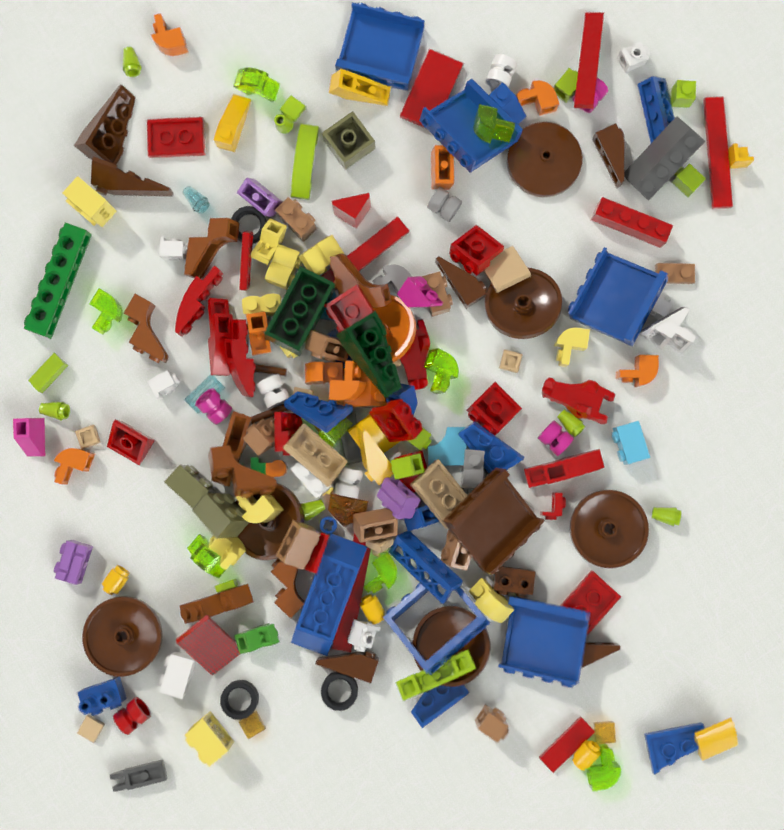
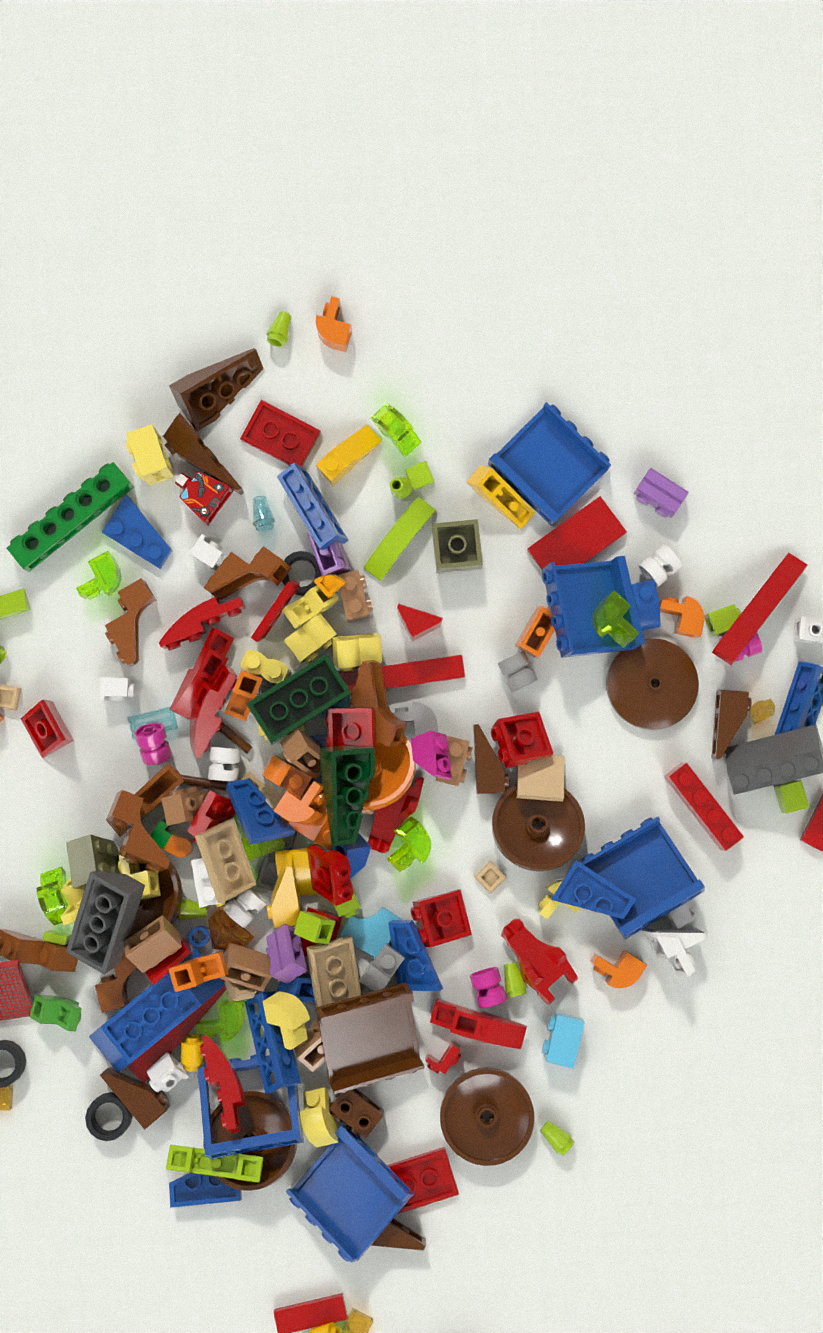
camera: 30 degrees right, 0 degrees up
(113, 266) = (136, 534): none -> blue wing
(145, 210) = (203, 495): none -> red torso
(189, 484) = (80, 813): olive brick -> none
(227, 171) = (311, 506): none -> fence
(253, 547) = (105, 919): none -> dark grey slope
(274, 217) = (329, 584): none -> light orange tile
(343, 544) = (198, 970): none -> orange brick
(403, 609) = (223, 1074): none -> red slope
(426, 537) = (290, 1014): none -> light yellow brick
(471, 22) = (660, 493): none -> medium lavender brick
(492, 723) = (244, 1247): medium nougat brick -> none
(590, 325) = (592, 892): none -> blue wing
(632, 132) = (761, 710): none -> clear yellow plate
(677, 272) = (720, 886): medium nougat plate -> none

